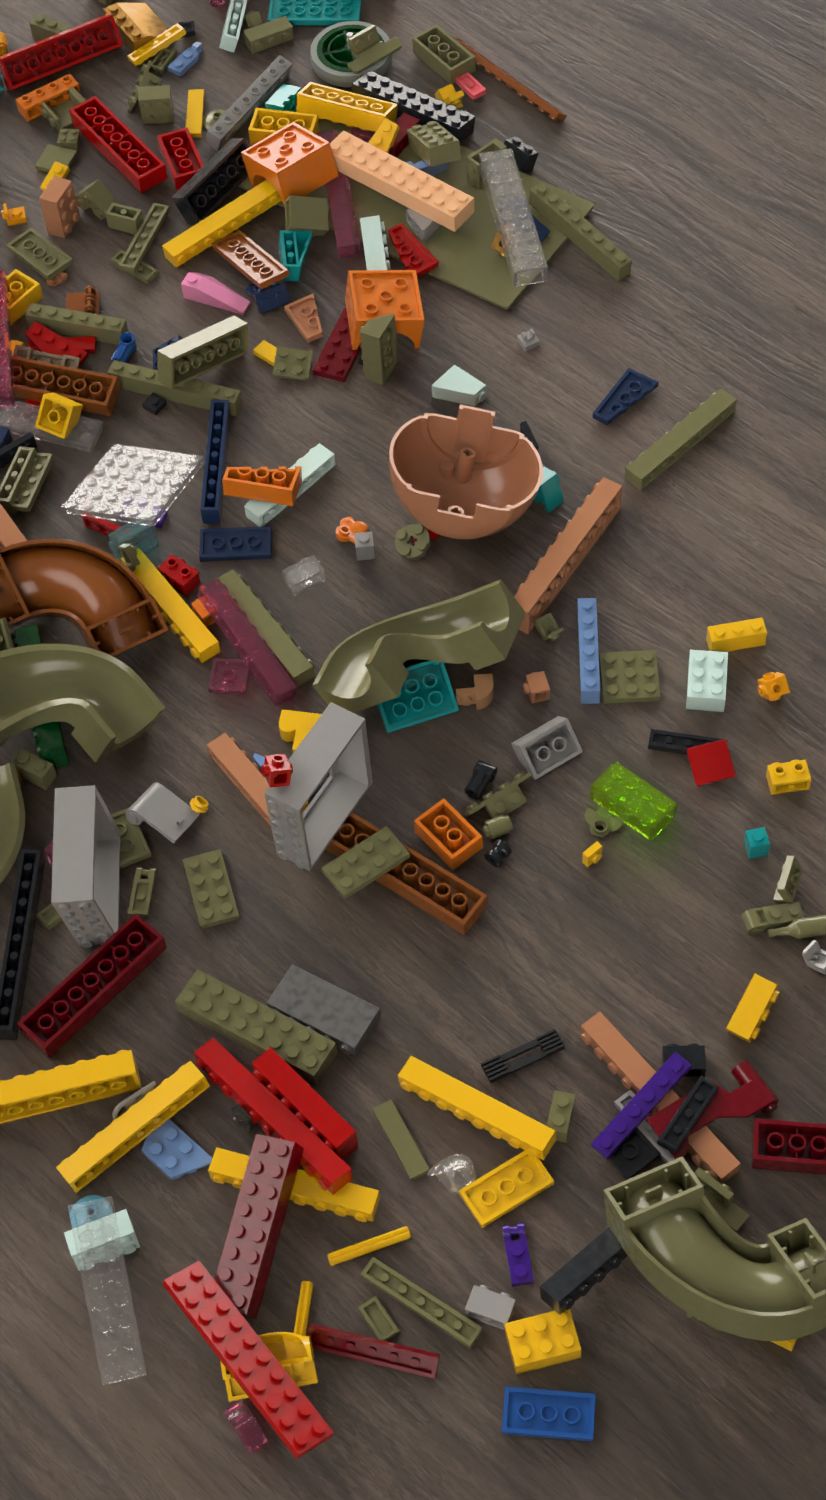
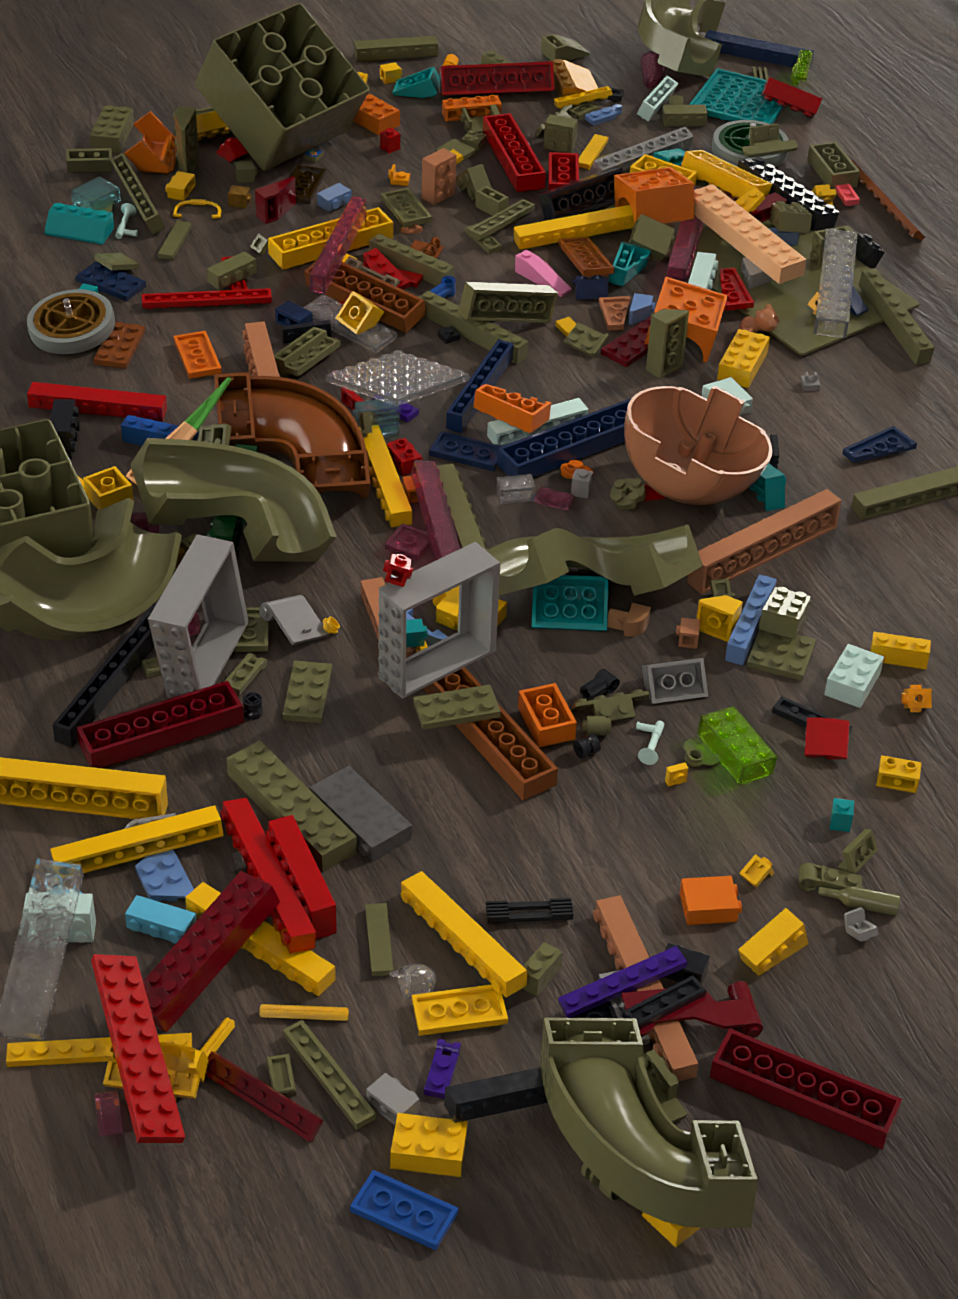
camera: 15 degrees right, 15 degrees down
(168, 927) = (252, 706): none -> black wheel
(186, 1368) = (72, 1050): none -> yellow plate
(194, 1202) = (158, 919): none -> medium azure brick
(330, 304) = (641, 308): none -> medium blue slope
(335, 496) = (565, 442): none -> dark blue brick
(344, 571) = (554, 498): none -> clear pink plate
(454, 334) = (743, 357): none -> yellow brick
(458, 282) = (765, 320): none -> nougat animal
(557, 842) = (648, 755): none -> light aqua piece
(560, 660) = (719, 616): none -> yellow slope
(617, 633) = (784, 612): none -> olive brick
(677, 981) = (710, 900): none -> orange brick
(706, 933) = (757, 870): none -> yellow bracket

